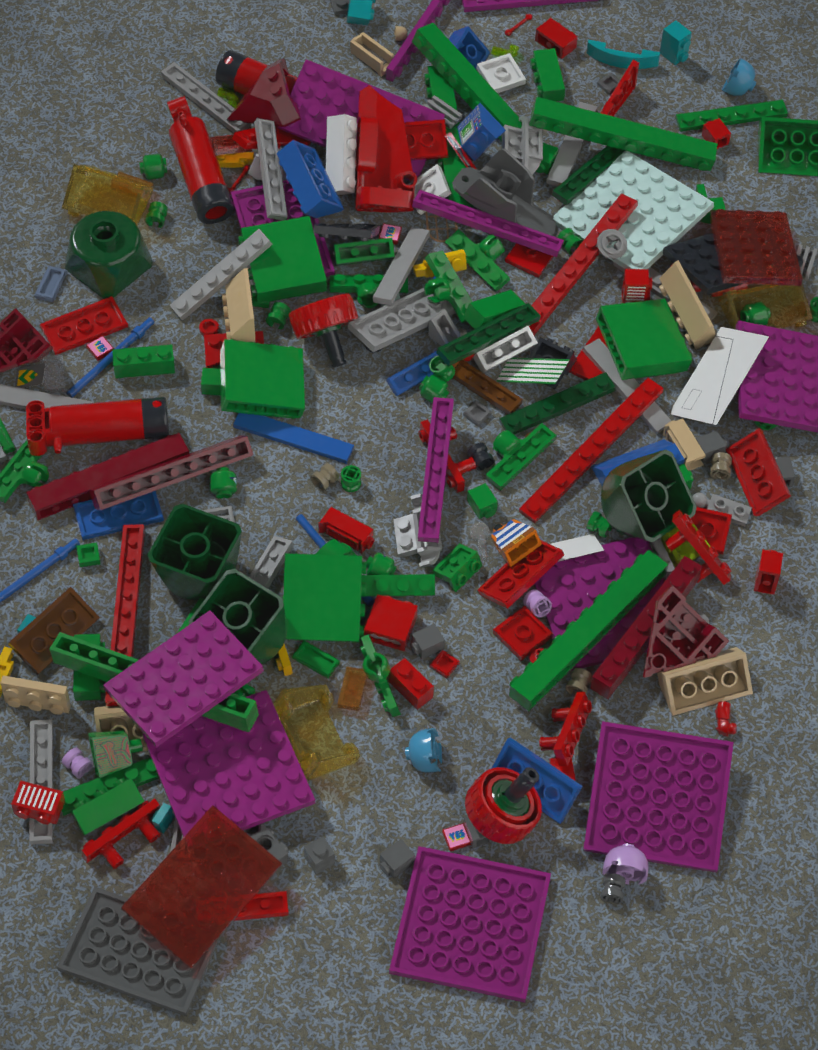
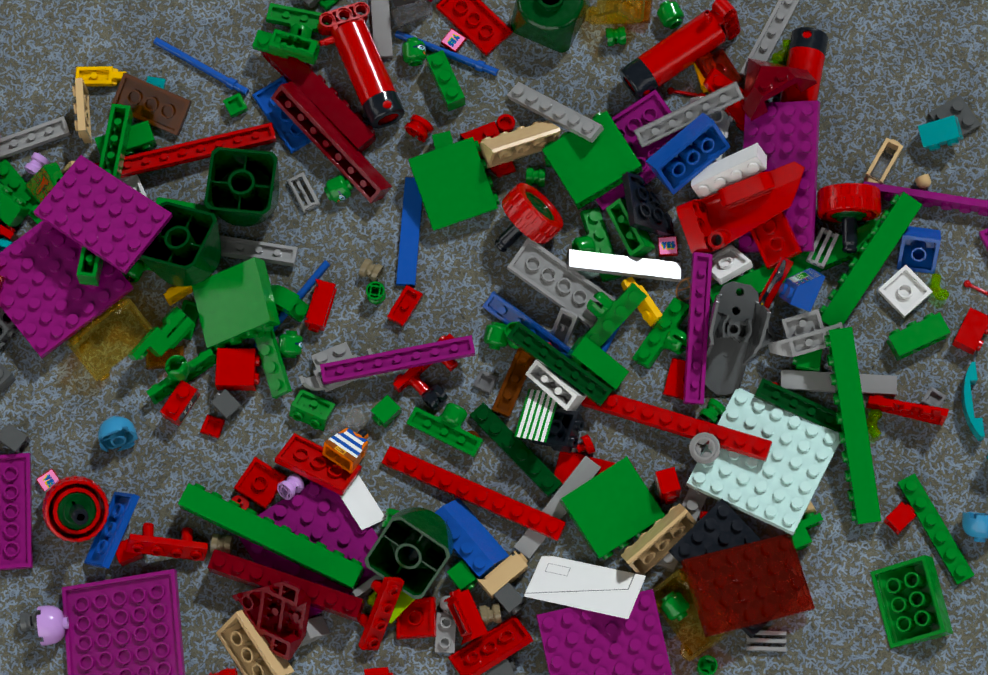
camera: 80 degrees right, 15 degrees up
(47, 478) = (287, 44): none -> green plate
(99, 380) = (414, 51): none -> green head
(186, 395) = (419, 127): none -> red wheel
(335, 673) = (166, 337): none -> green plate
(373, 458) = (405, 306): none -> red plate
(411, 76) = (848, 205): none -> red wheel
(572, 342) = (586, 445): none -> red tile
(720, 482) = (466, 615): none -> red window

